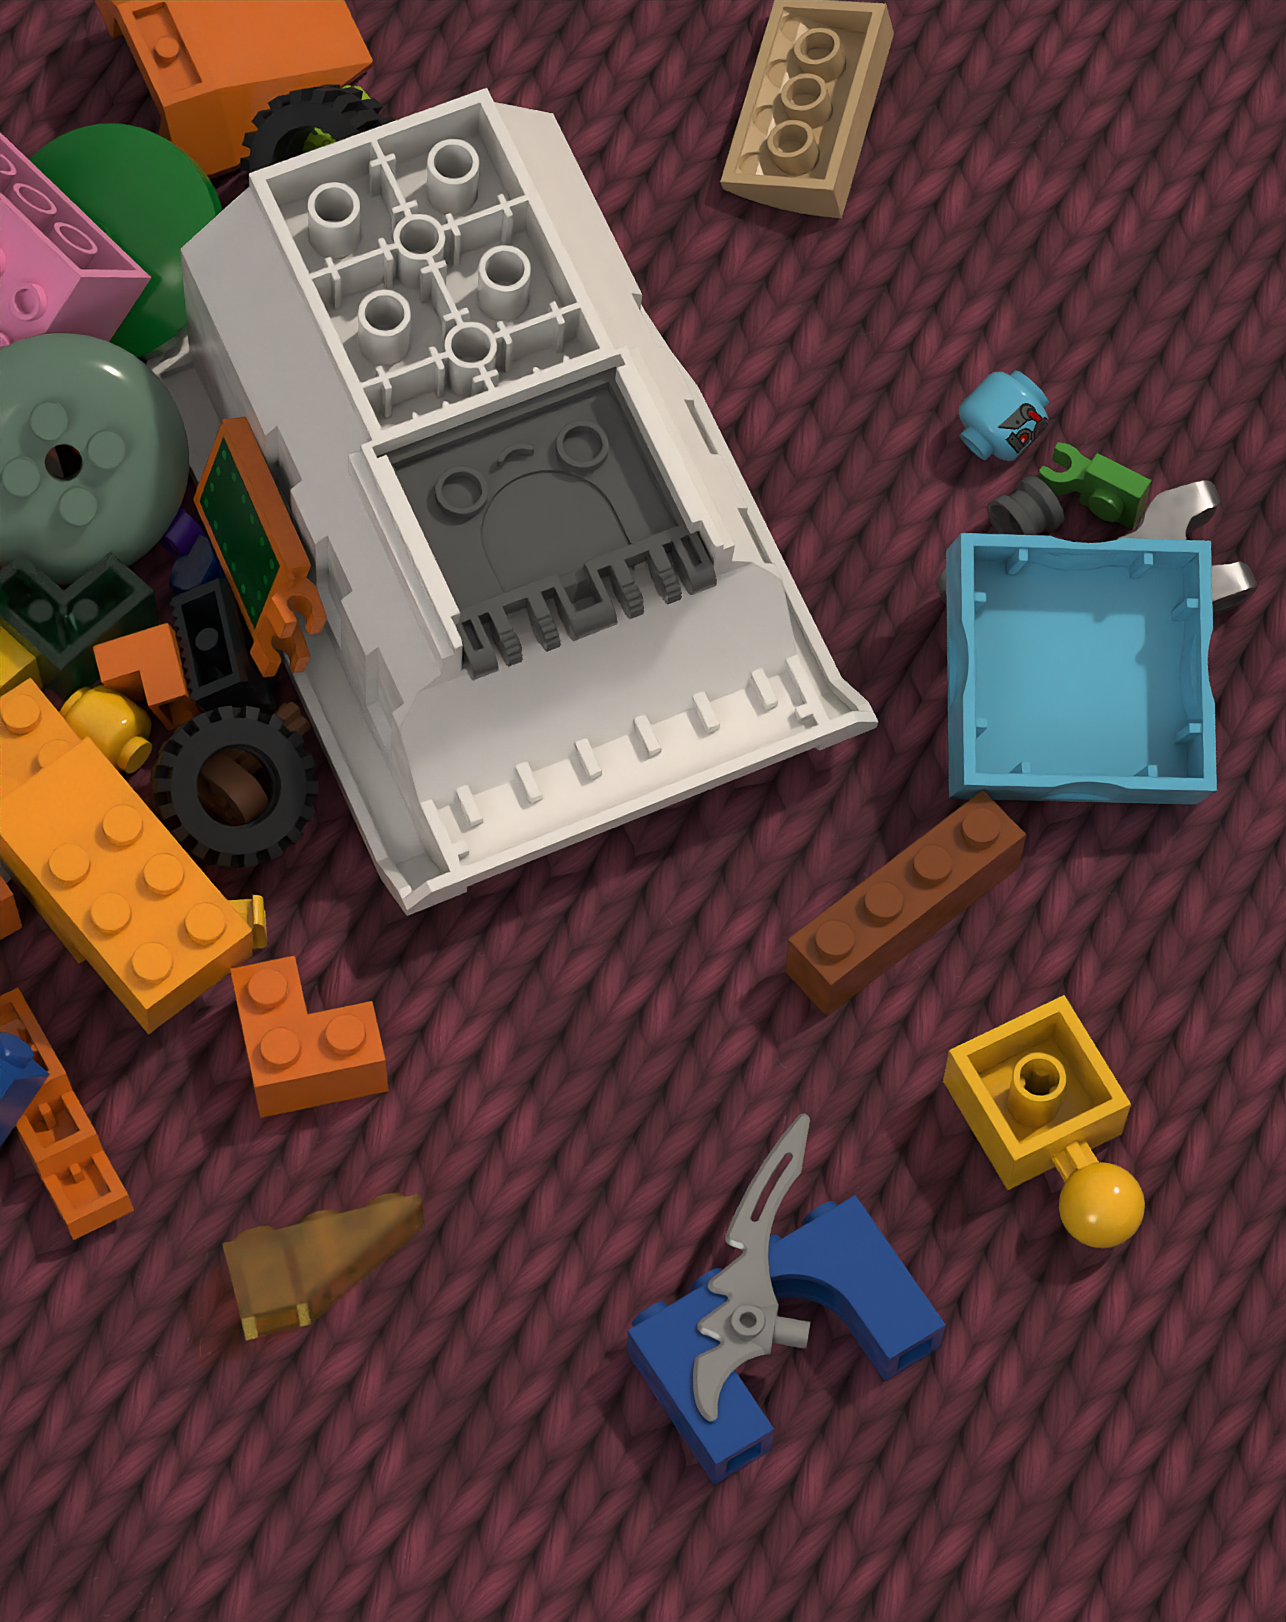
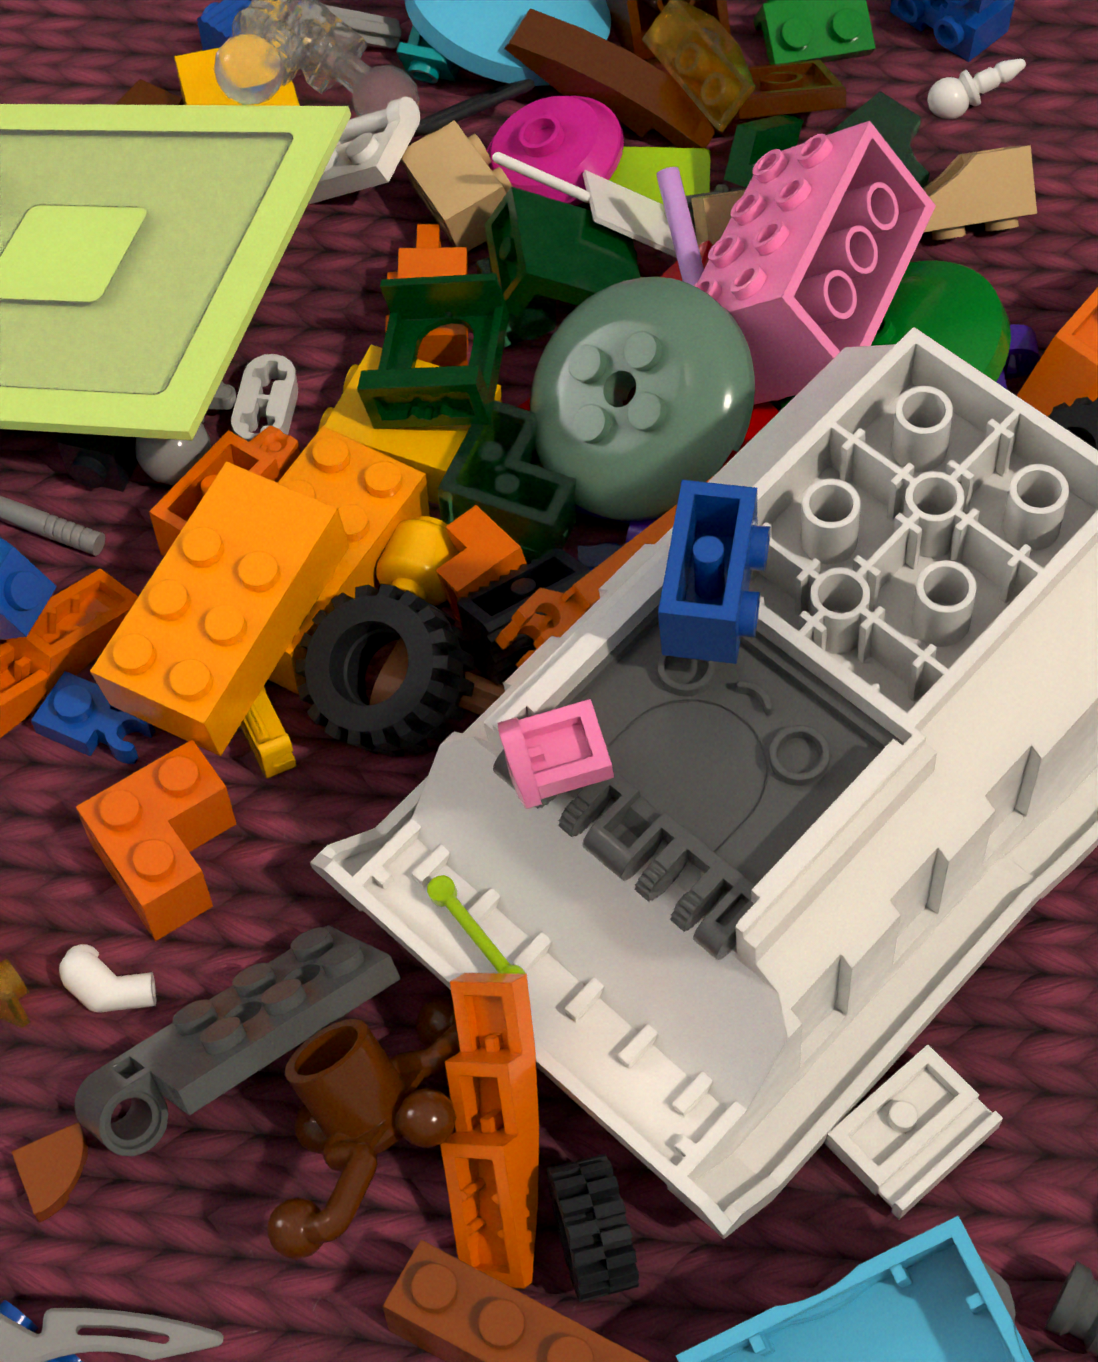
camera: 70 degrees right, 5 degrees down
(124, 1080) = (82, 718): none -> blue plate
(421, 1142) = (99, 987): none -> white arm
(428, 416) = (709, 572): none -> blue brick
(504, 801) = (444, 893): none -> lime hinge
(510, 609) = (555, 752): none -> bright pink tile
(568, 1047) = (231, 1036): none -> dark grey hinge
(579, 1229) = (52, 1168): none -> dark orange tile
(657, 943) = (358, 1108): none -> reddish brown wheel
(713, 848) = (495, 1148): none -> orange slope
(824, 818) = (593, 1227): none -> black tyre
(836, 567) = (913, 1131): none -> white plate

